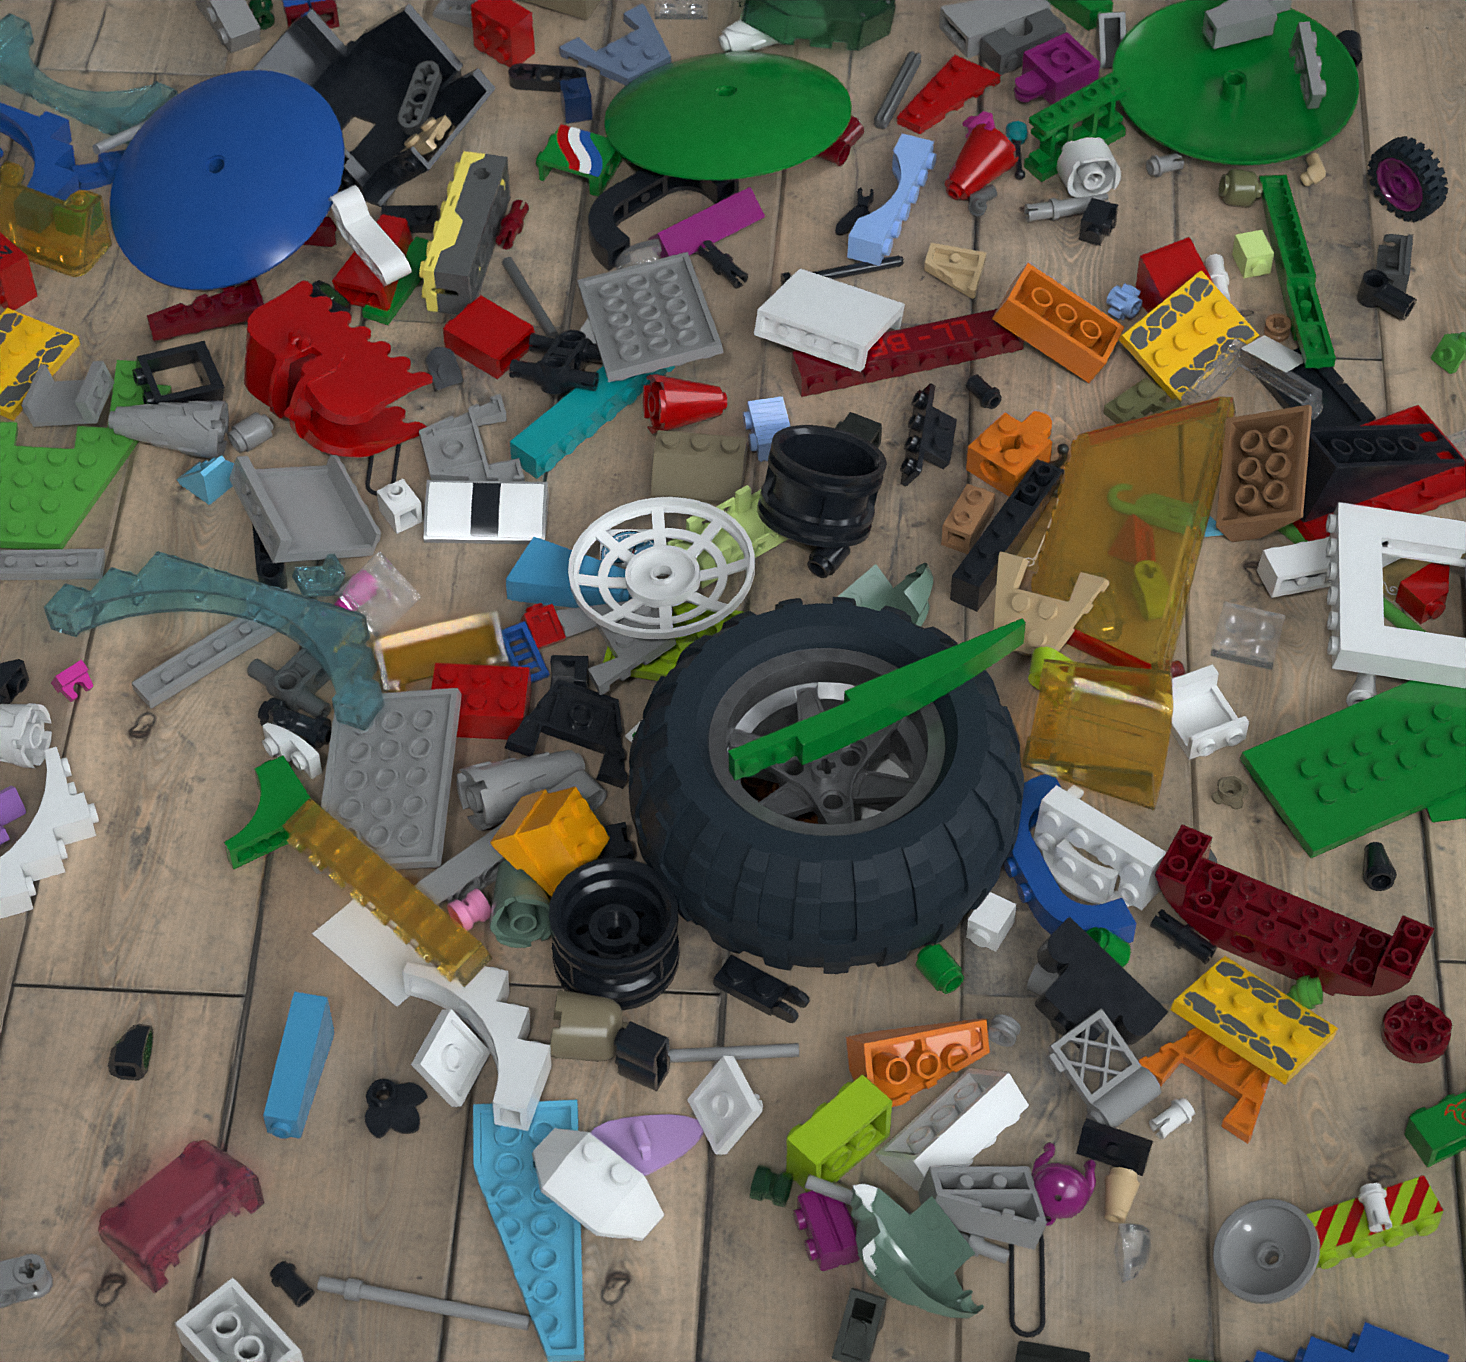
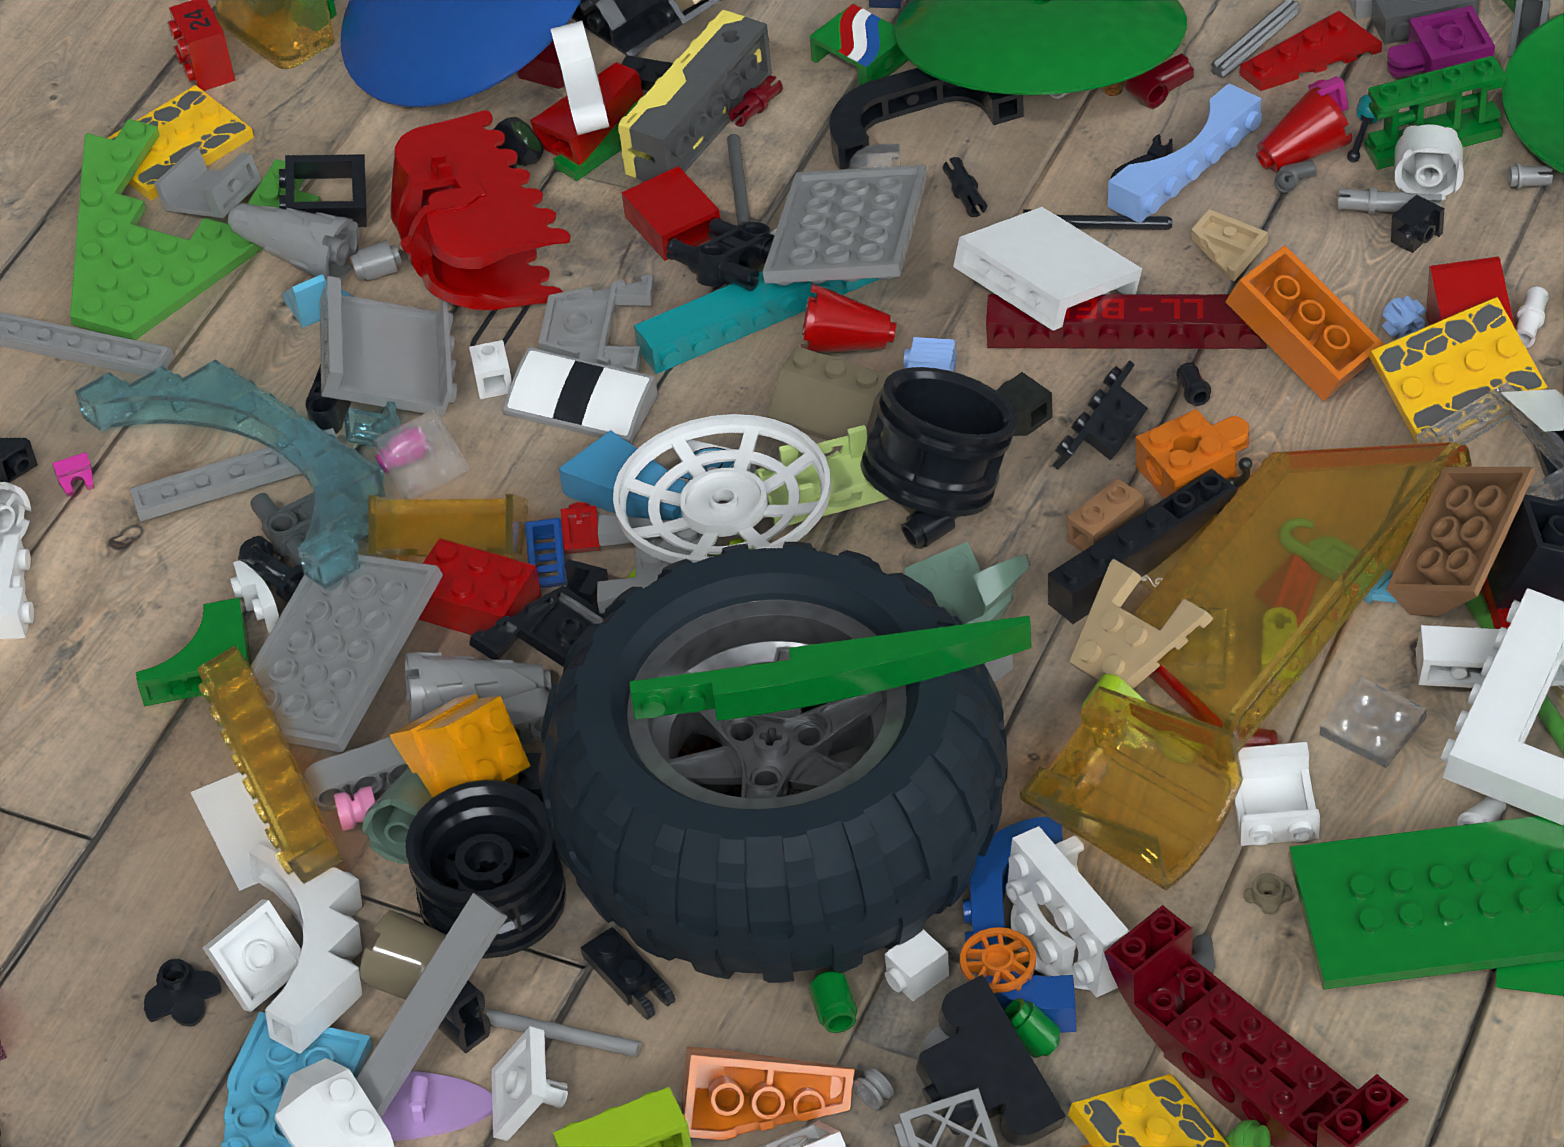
camera: 25 degrees right, 5 degrees down
(207, 312) = (385, 131): dark red wing -> none
(299, 1065) = (100, 921): dark azure slope -> none
(443, 368) = (606, 236): black plate -> none
(634, 1054) = (429, 1001): none -> light grey tile
(710, 224) = (969, 140): magenta brick -> none
(1061, 900) = (999, 959): none -> orange wheel
(1138, 402) = (1371, 430): olive plate -> none
(1183, 936) = (1132, 1039): black pin -> none
(1378, 868) = (1403, 1022): black cone -> none

